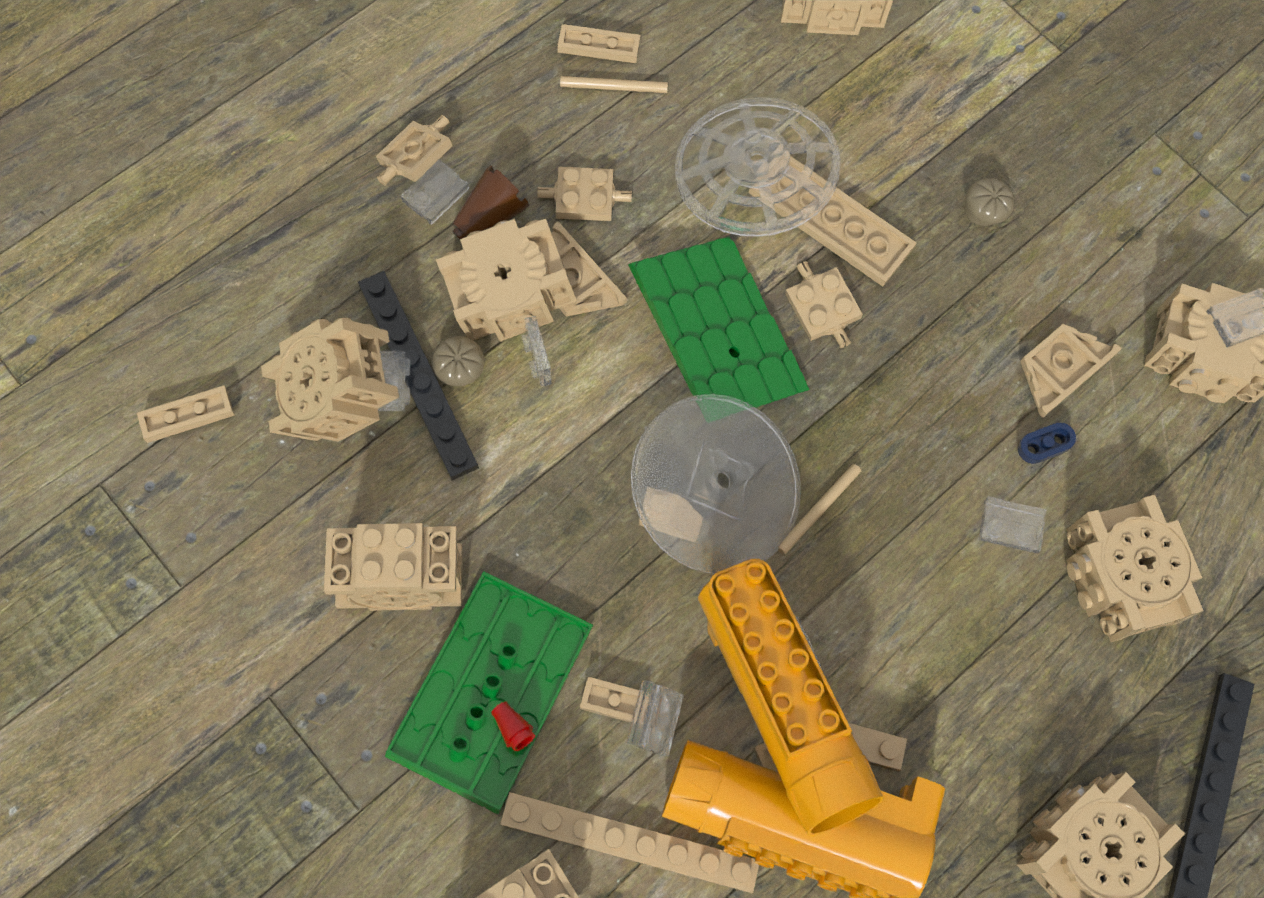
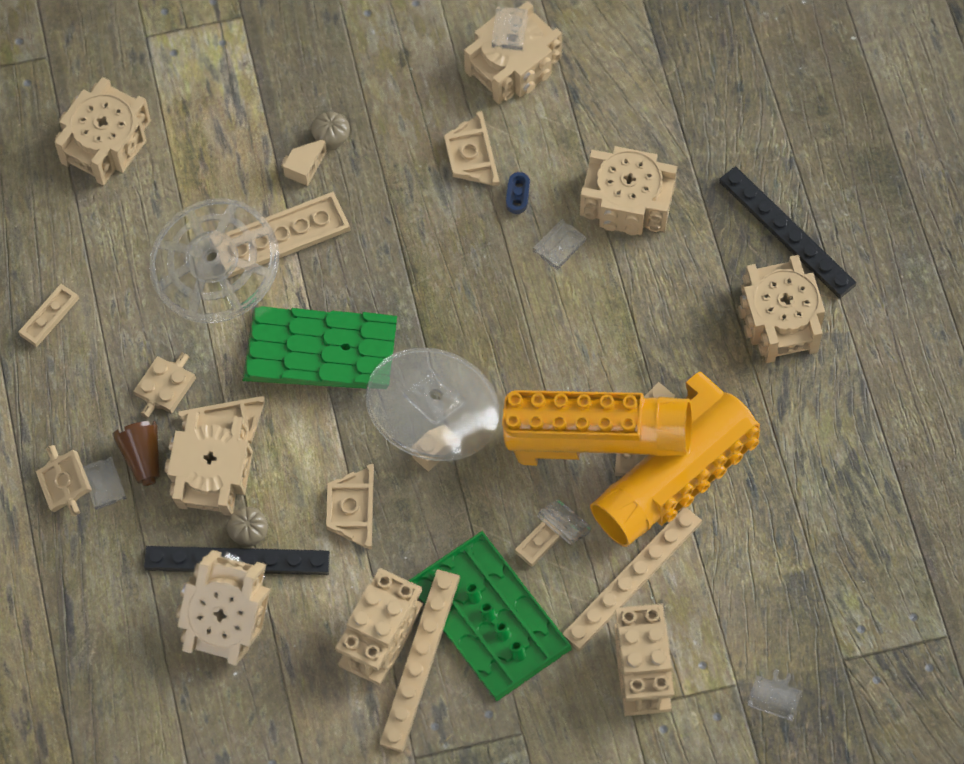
camera: 55 degrees left, 5 degrees down
(185, 414) = (179, 726): tan plate -> none
(389, 638) = (419, 661): none -> tan plate
(513, 727) = (523, 608): red cone -> none
(533, 342) = (276, 472): clear plate -> none
(545, 461) = (352, 506): none -> tan wing
(613, 84) = (84, 326): tan bar -> none
(819, 508) = (489, 373): tan bar -> none
(823, 304) = (341, 274): tan plate -> none
(934, 196) = (304, 161): none -> tan slope

